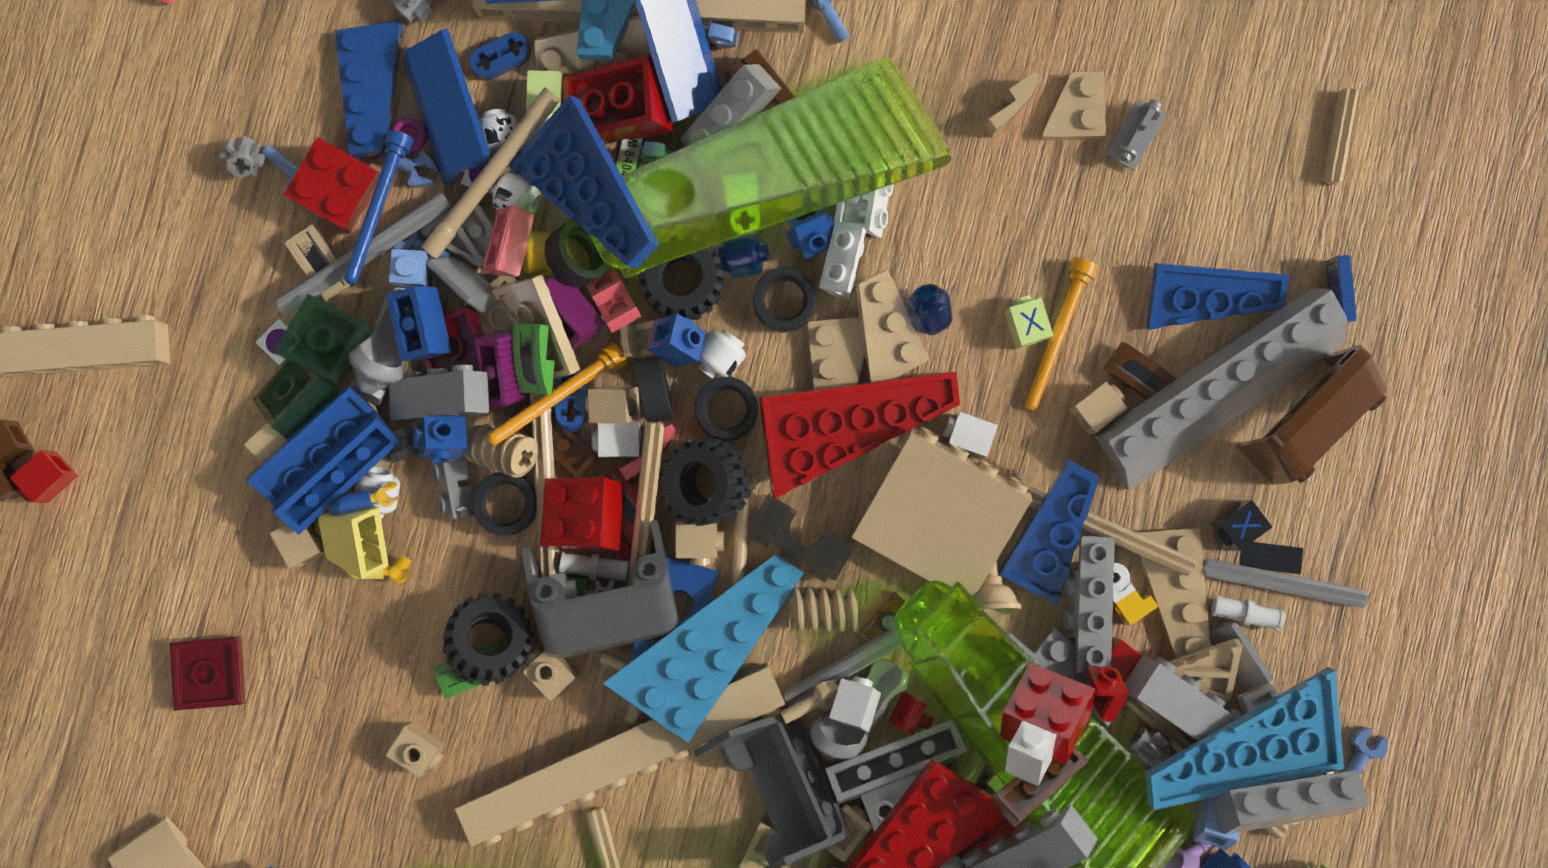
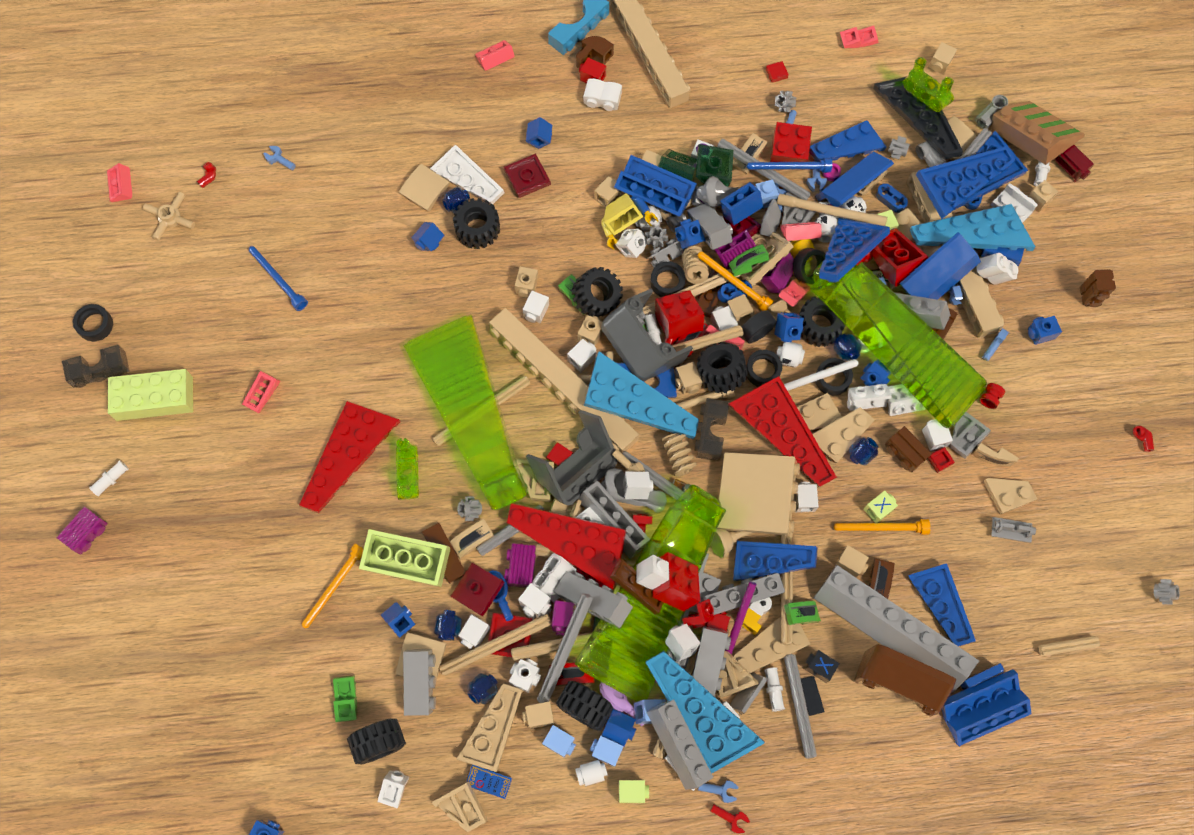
camera: 75 degrees right, 15 degrees down
(96, 476) = (602, 94): none -> white brick
(130, 622) = (539, 133): none -> blue brick
(153, 786) = (466, 174): none -> white wing
(173, 143) = (777, 71): none -> red tile
(207, 820) = (454, 198): none -> clear blue head
(242, 805) = (476, 236): none -> black tyre
(414, 539) = (632, 243): none -> white brick
(420, 486) = (656, 236): none -> light grey gear
(470, 752) = (535, 307): none -> white brick
(588, 703) = (582, 355): none -> white brick
(747, 806) = (558, 454): none -> red tile
(779, 326) = (822, 374): none -> white piece
(911, 57) = (992, 395): none -> red wheel
(946, 182) = (936, 435): none -> white brick
(951, 237) = (907, 449): none -> reddish brown brick
(964, 130) = (968, 435): none -> light grey wing
(984, 190) = (941, 459): none -> red tile
(1127, 623) = (741, 615): none -> magenta bar
(1138, 736) = (682, 642): none -> white brick
(1152, 522) = (802, 612): none -> bright green slope
(1387, 302) = (985, 707): none -> blue slope
(1408, 754) = (732, 819): none -> red bar

